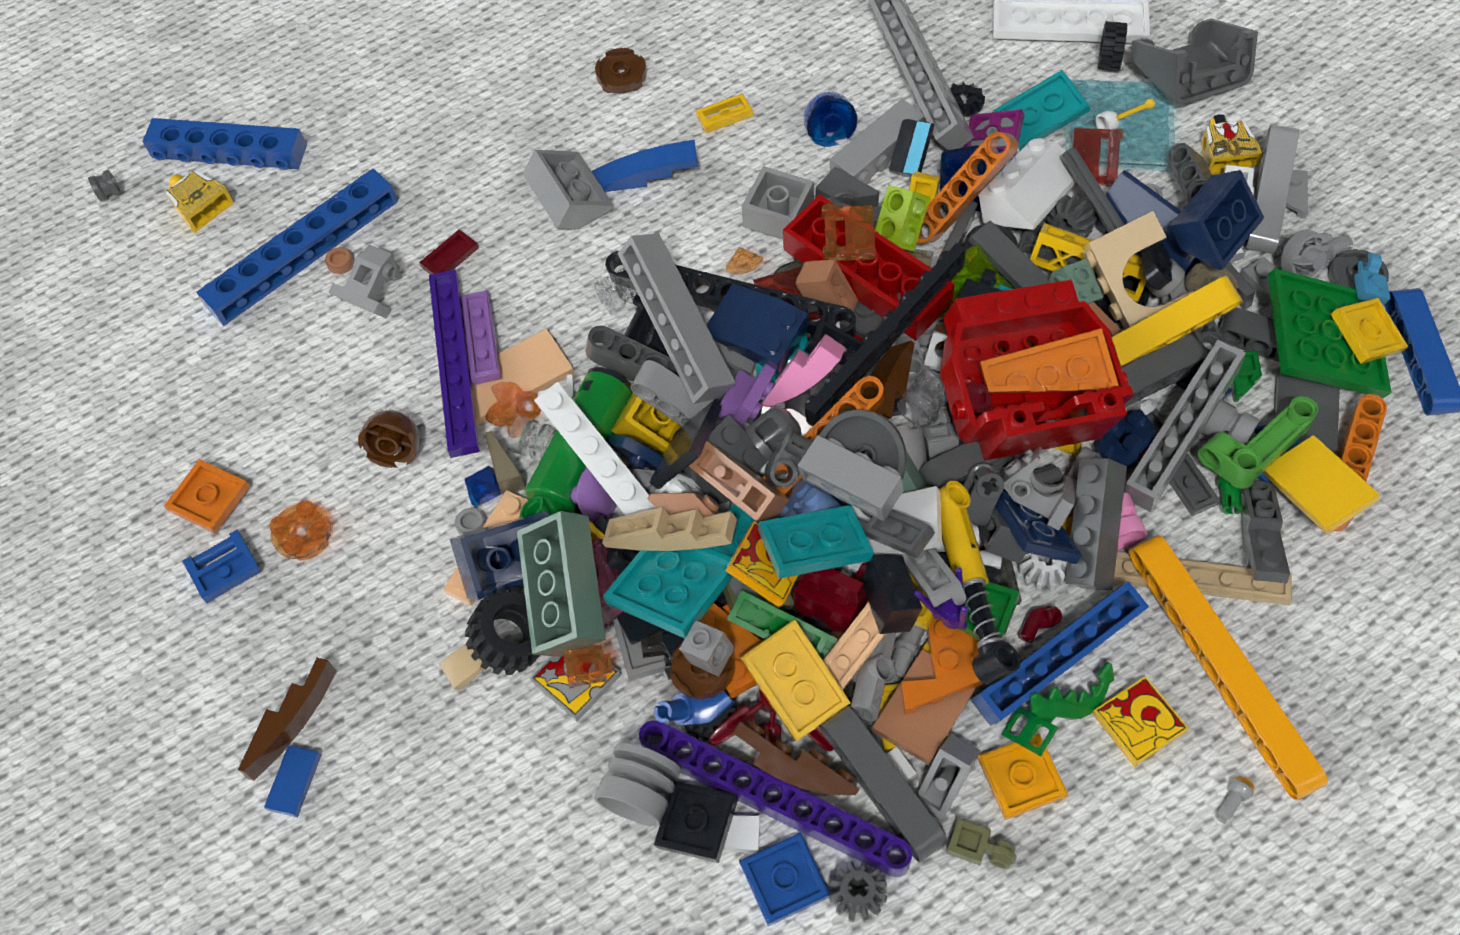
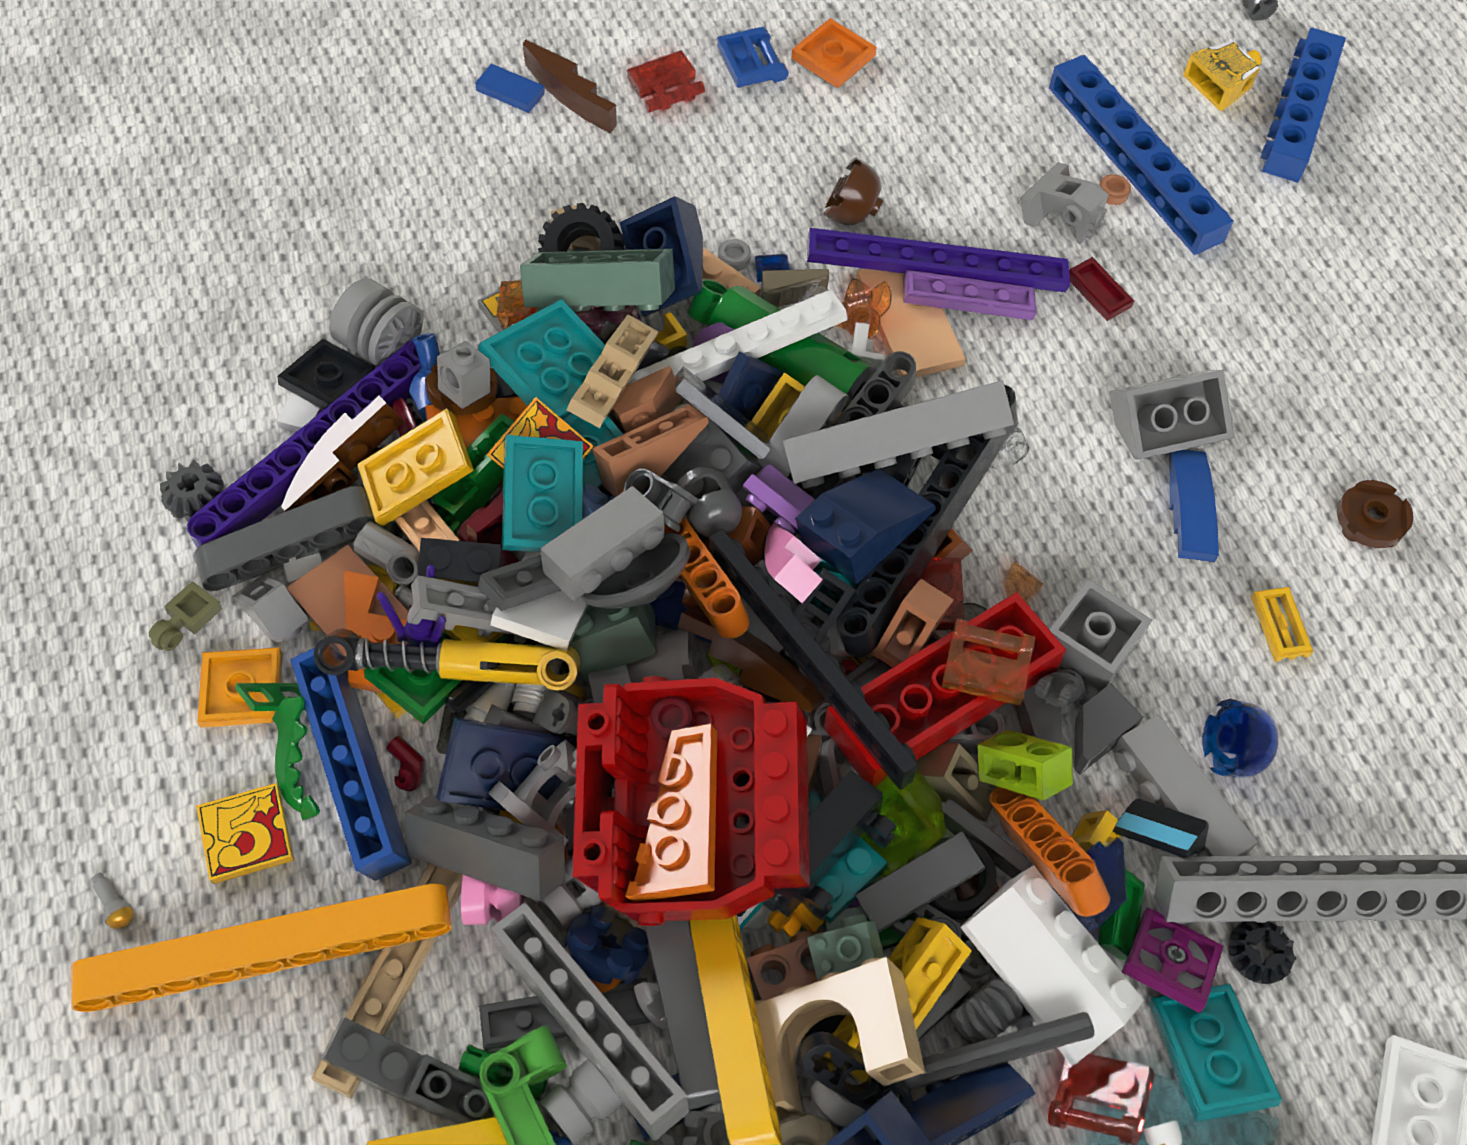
camera: 95 degrees right, 0 degrees up
(257, 639) = (664, 73): none -> clear red plate
(296, 516) = (773, 106): clear orange plate -> none
(784, 879) = (239, 437): blue tile -> none

